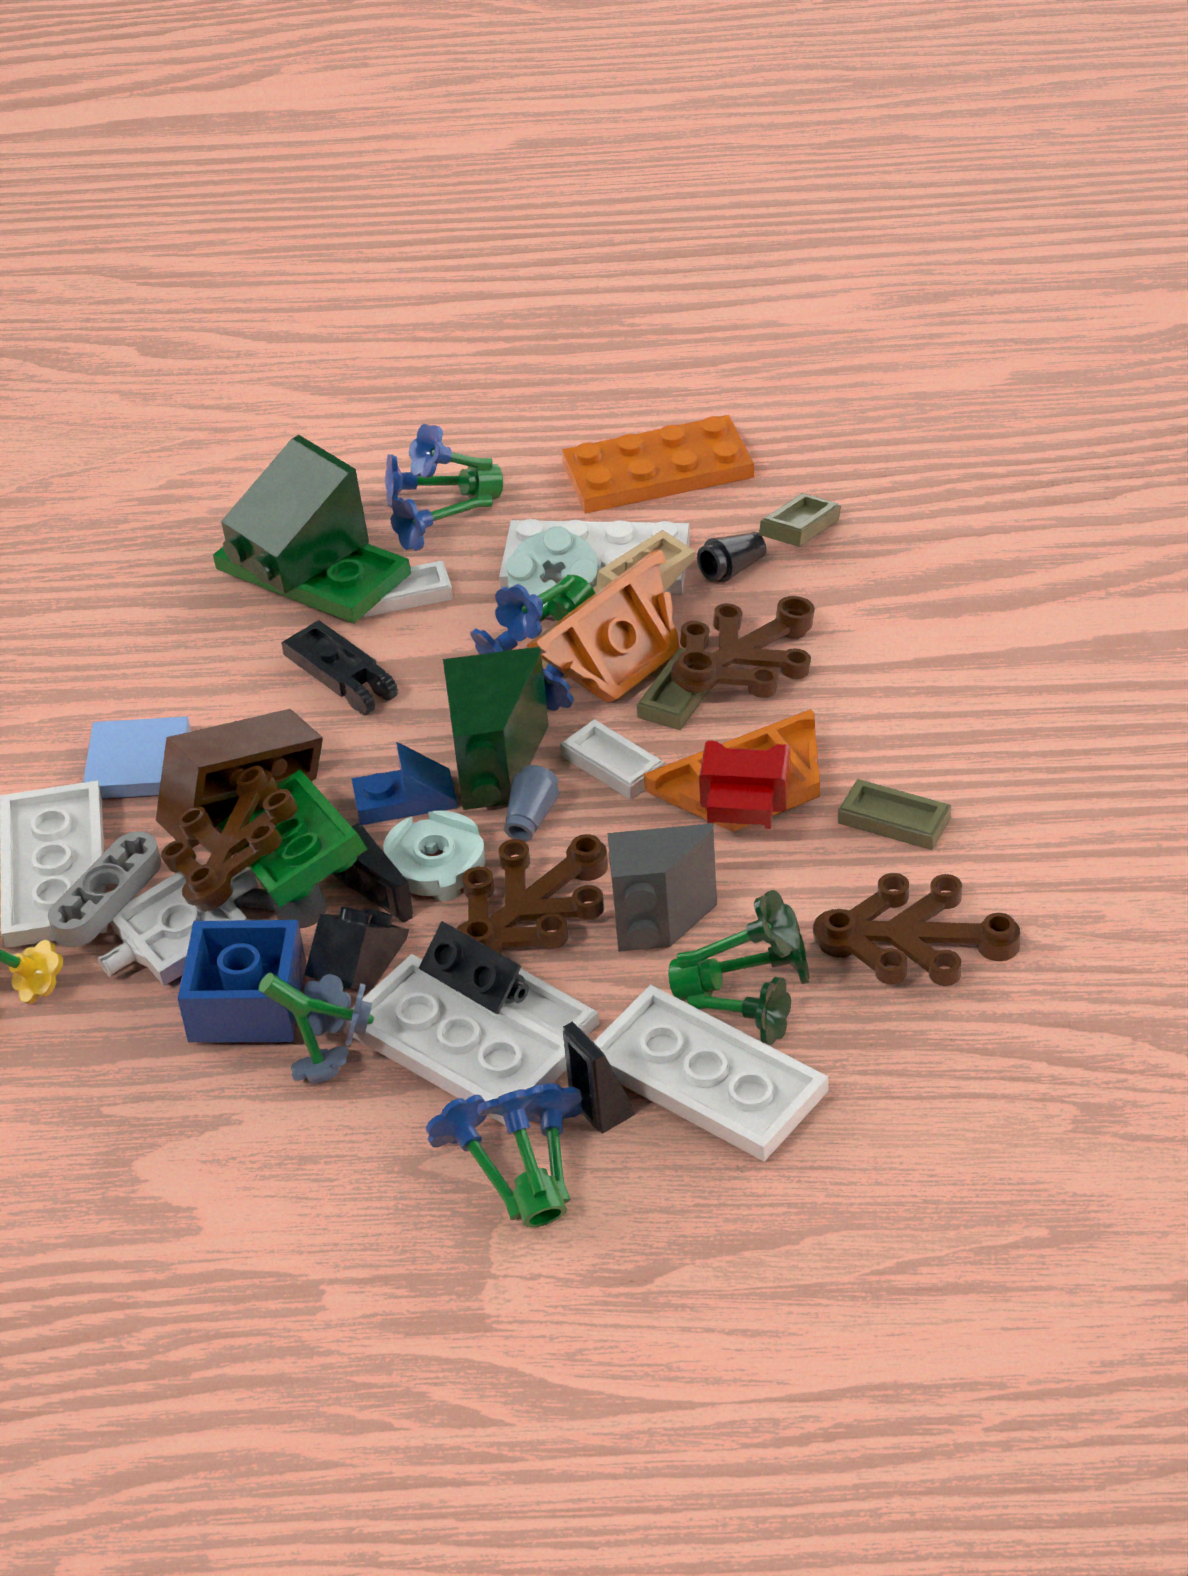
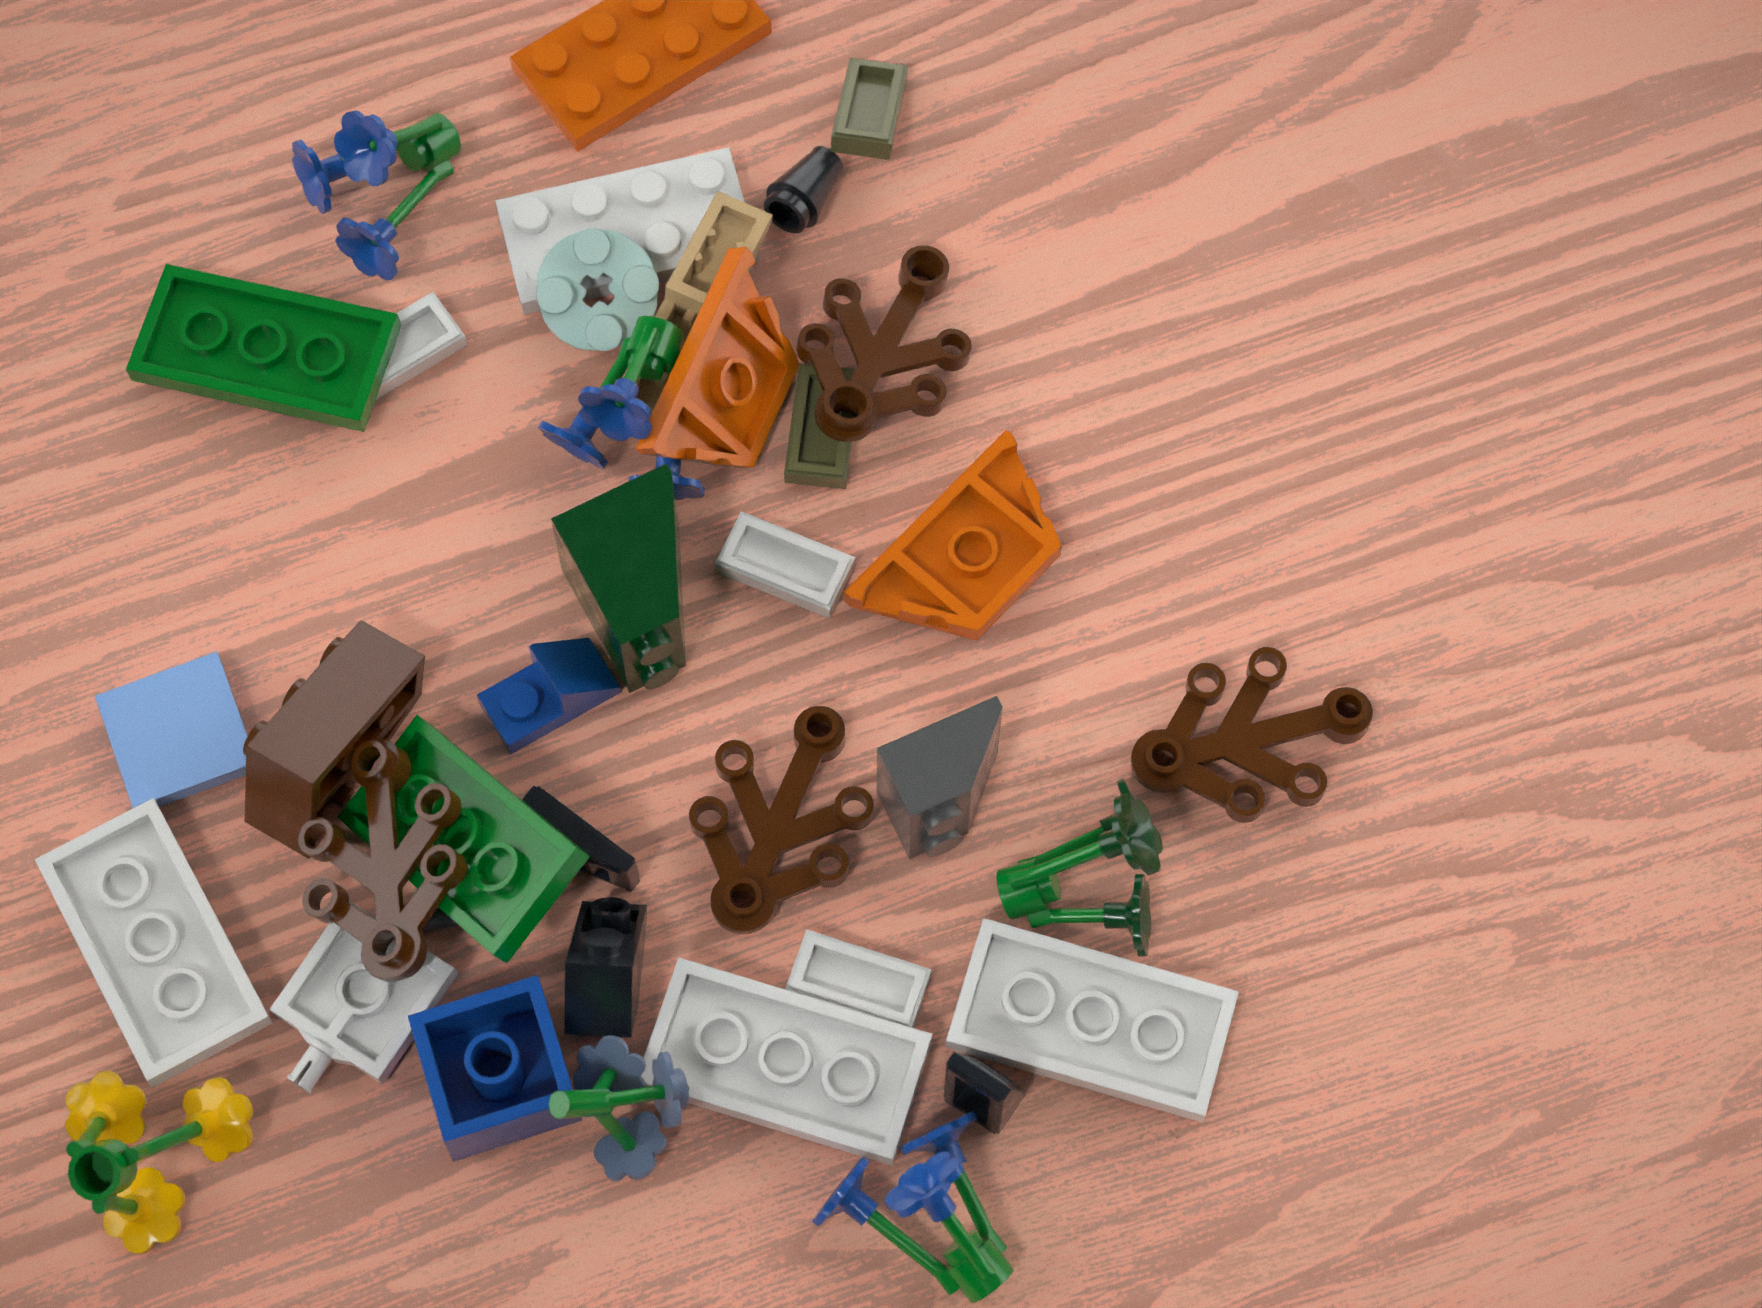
camera: 25 degrees left, 25 degrees up
(82, 913) = (227, 1022): light grey beam -> none
(296, 517) = (232, 305): slope -> none
(339, 666) = (374, 509): black hinge -> none
(440, 874) = (610, 757): light aqua plate -> none
(473, 969) = (770, 971): black hinge -> none
(530, 800) = (718, 671): sand blue cone -> none
(744, 783) = (984, 592): red piece -> none
(894, 814) = (1157, 557): olive tile -> none

